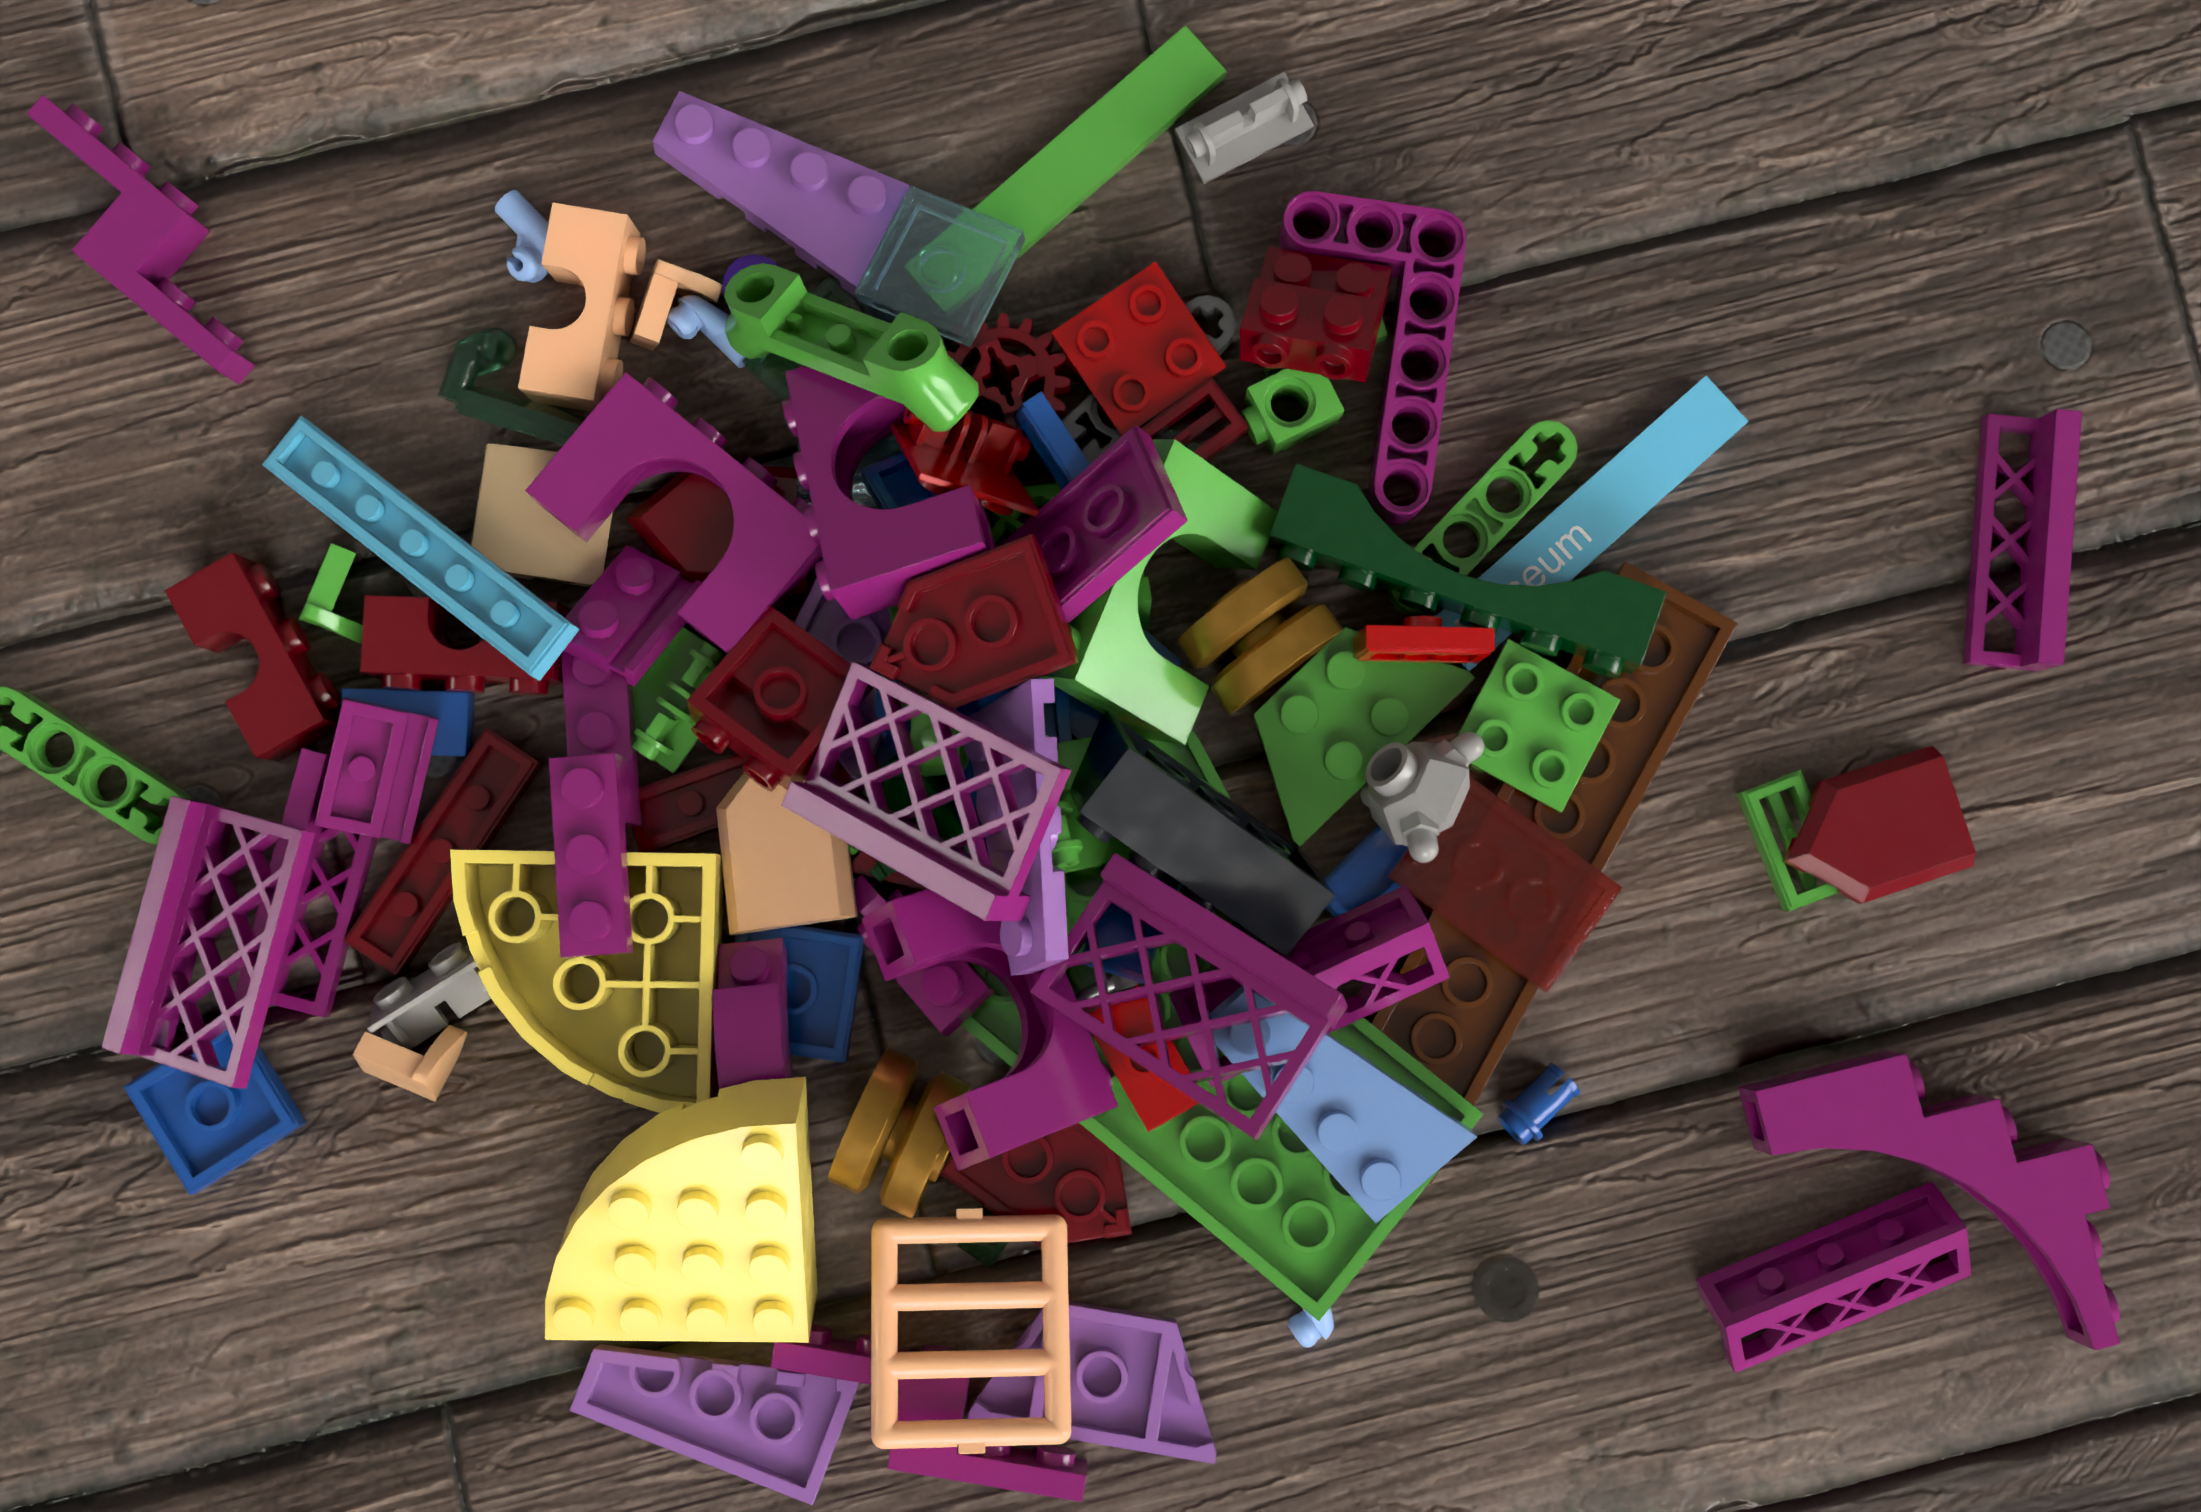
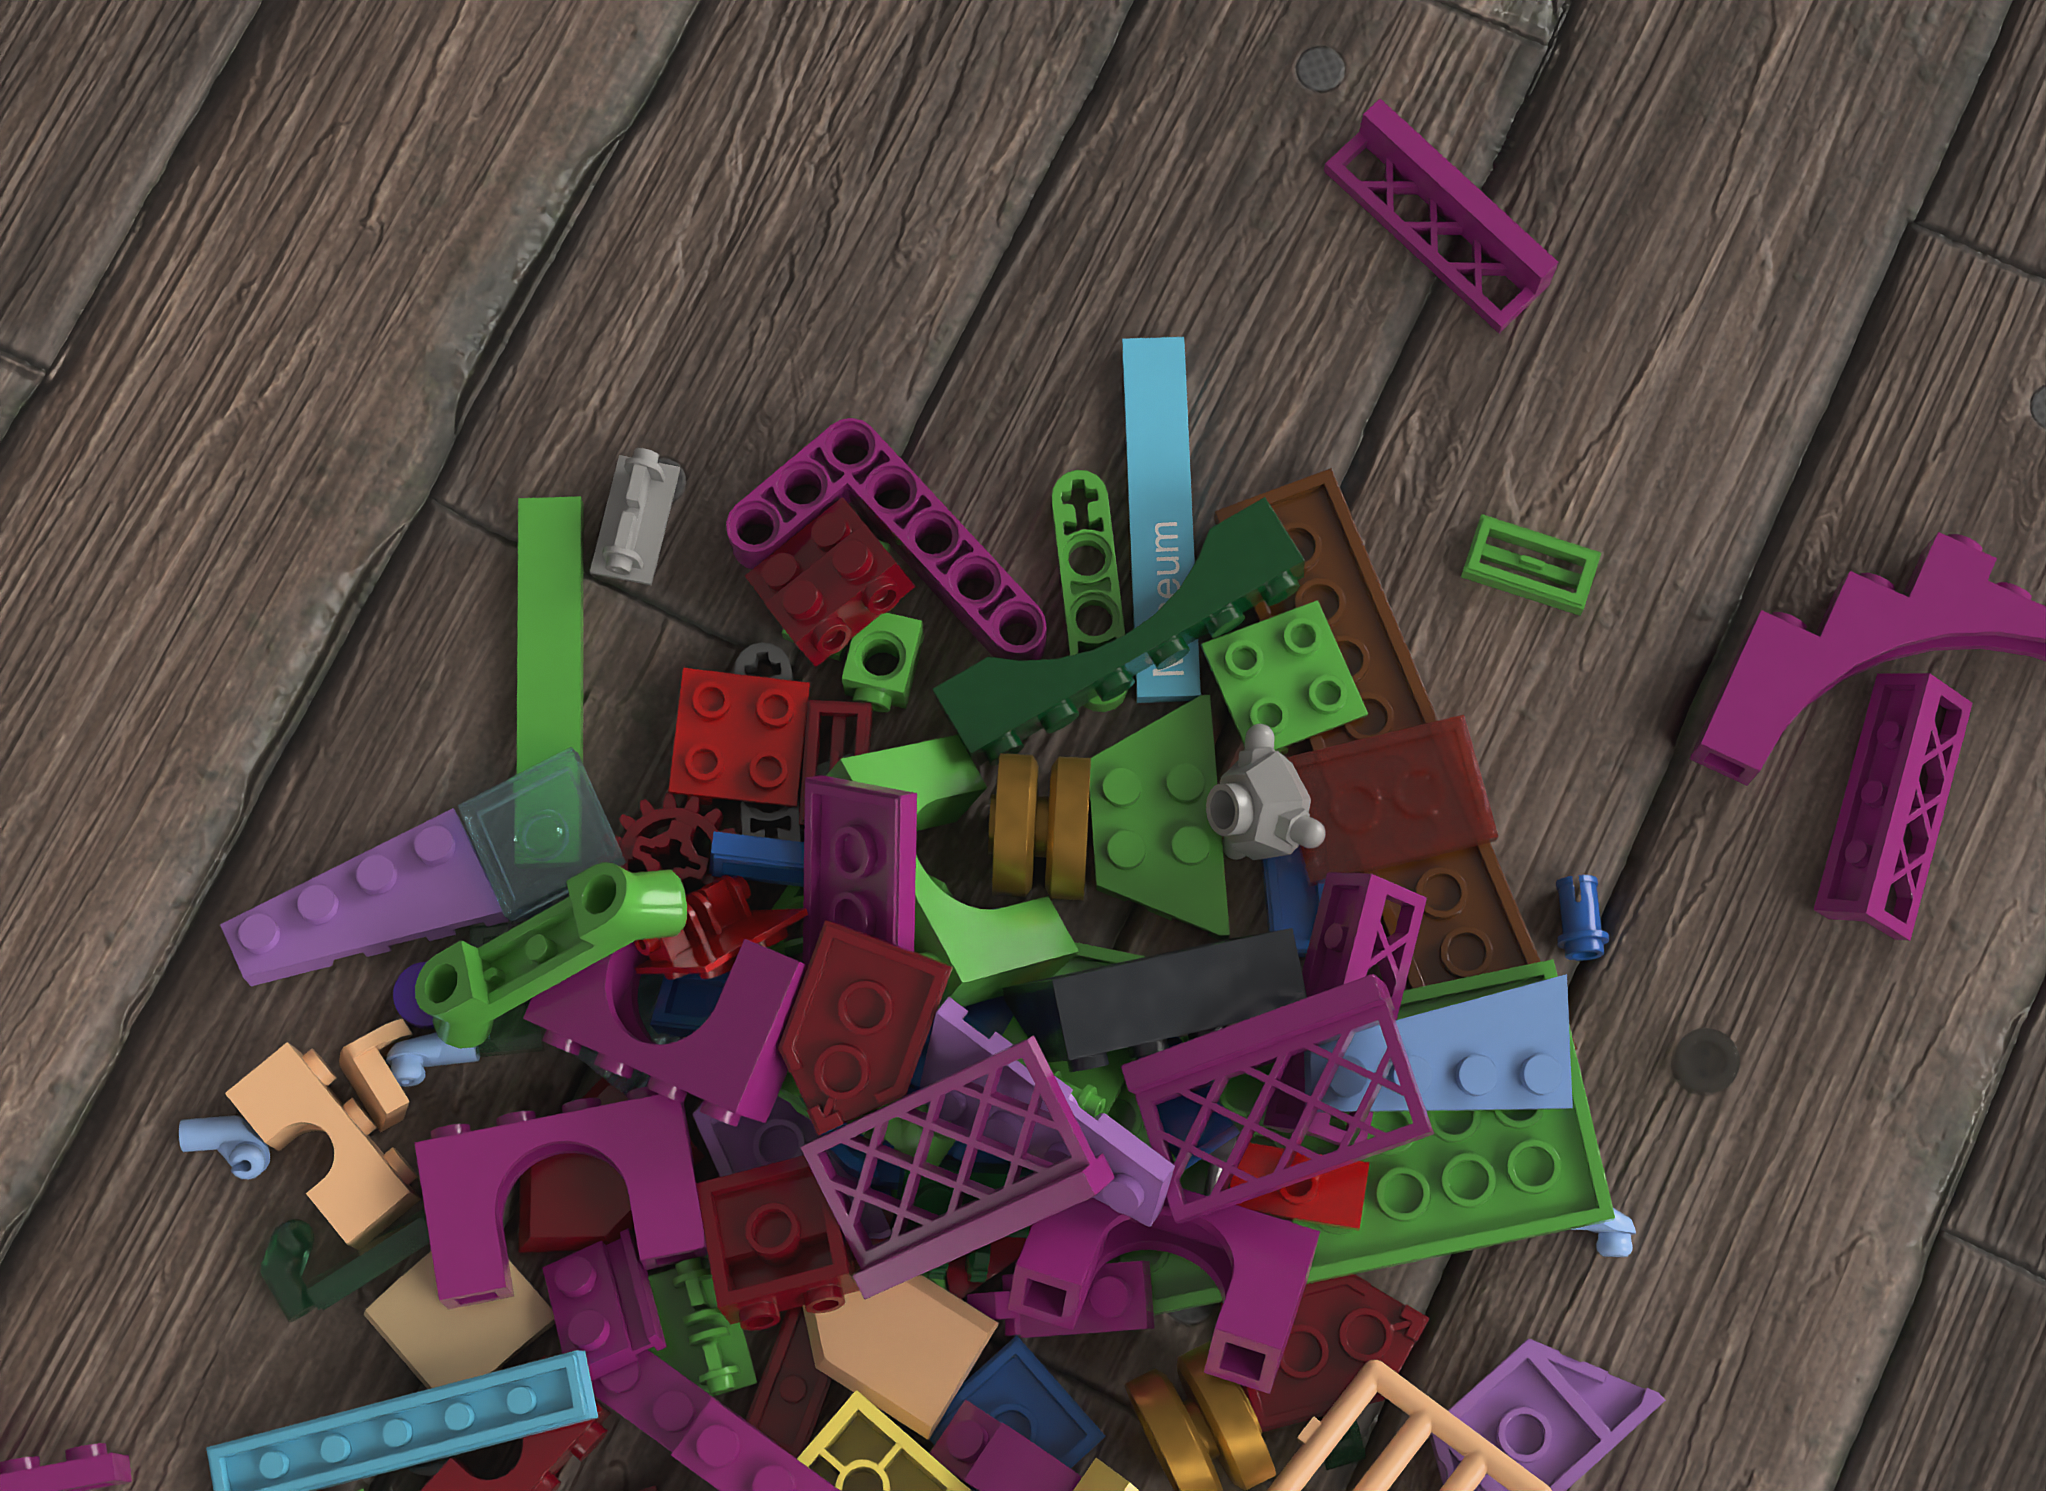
camera: 50 degrees left, 10 degrees down
(1423, 641) = (1149, 708): red plate -> none
(1884, 828) = (1576, 489): dark red tile -> none

